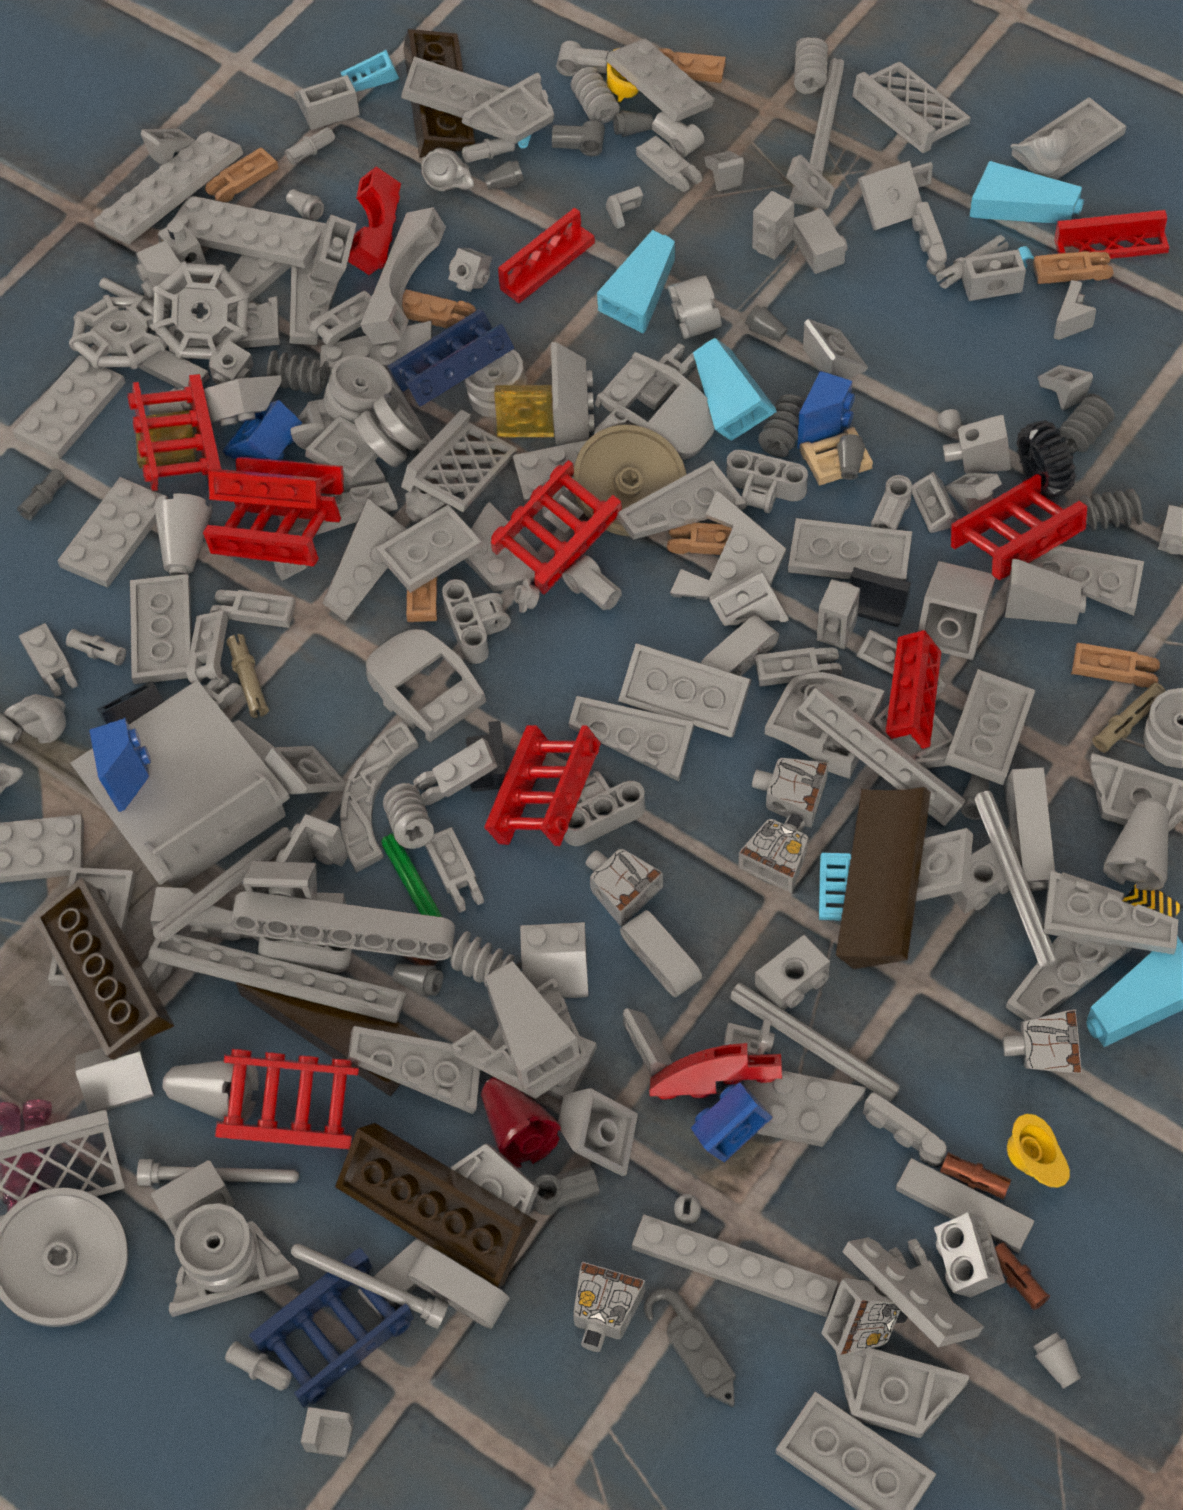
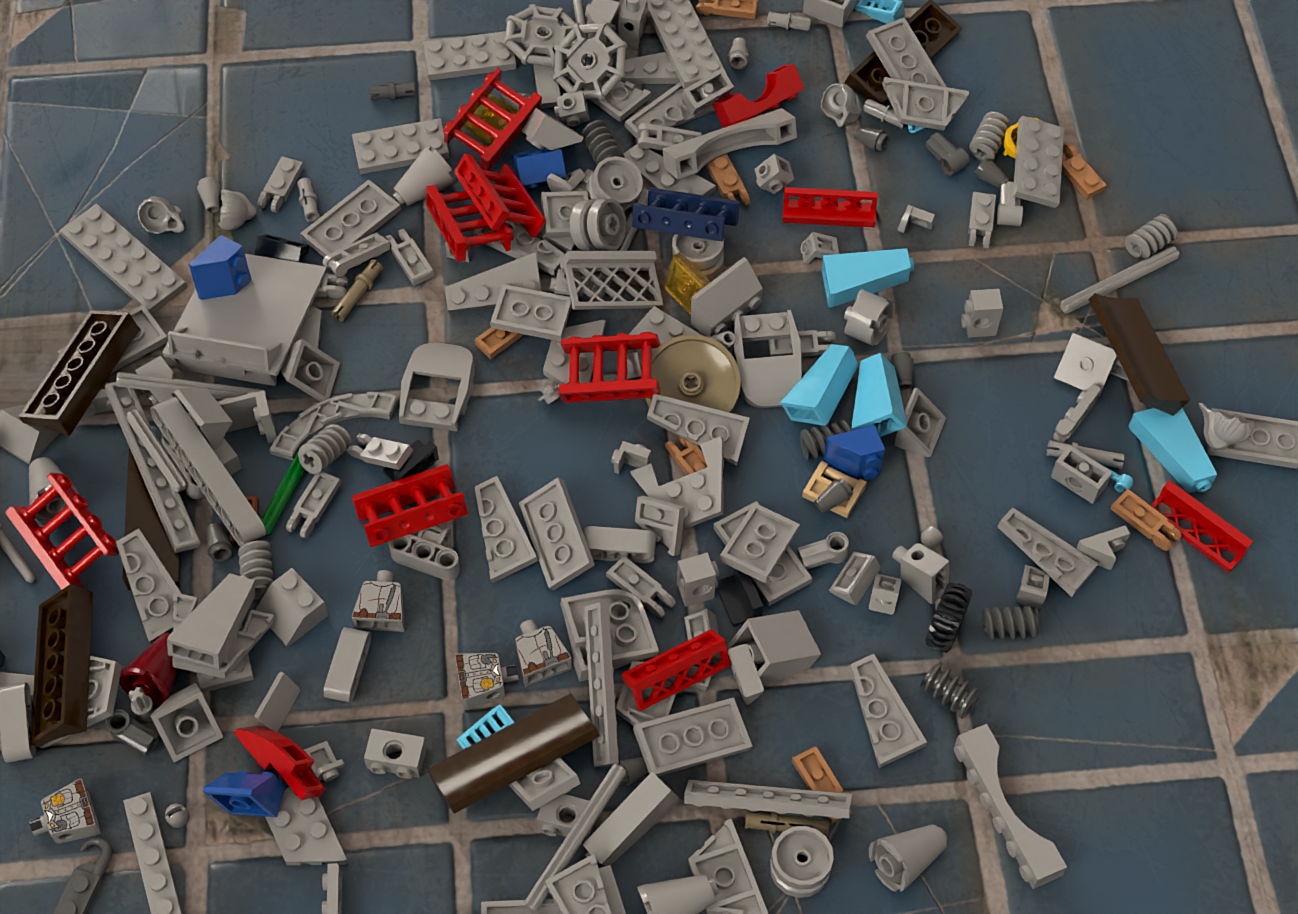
camera: 45 degrees right, 0 degrees up
(271, 957) = (156, 450): none -> light grey axle
(480, 619) = (513, 382): light grey piece -> none
(548, 1156) = (141, 705): none -> light grey axle
(574, 58) = (1012, 105): light grey piece -> none
(577, 294) = (818, 245): none -> light grey bracket
(587, 578) = (595, 418): light grey piece -> none
(656, 578) = (630, 454): none -> light grey bracket
(726, 168) = (1006, 253): light grey slope -> none
(766, 478) = (760, 463): light grey piece -> none
(785, 357) = (878, 397): none -> medium azure slope
(809, 185) = (1046, 310): light grey slope -> none
(815, 1042) = (358, 805): light grey axle -> none
(819, 240) = (1004, 350): light grey brick -> none
(848, 540) = (759, 542): none -> light grey plate
(900, 114) = (1167, 312): light grey fence -> none
(923, 147) = (1140, 353): none -> dark brown arch
(963, 644) = (745, 673): none -> light grey slope
(1026, 546) = (871, 659): red fence -> none
(1042, 595) = (832, 695): light grey slope -> none
(1050, 349) = (1053, 555): none -> light grey wing
(1101, 710) = (768, 799): none -> light grey plate

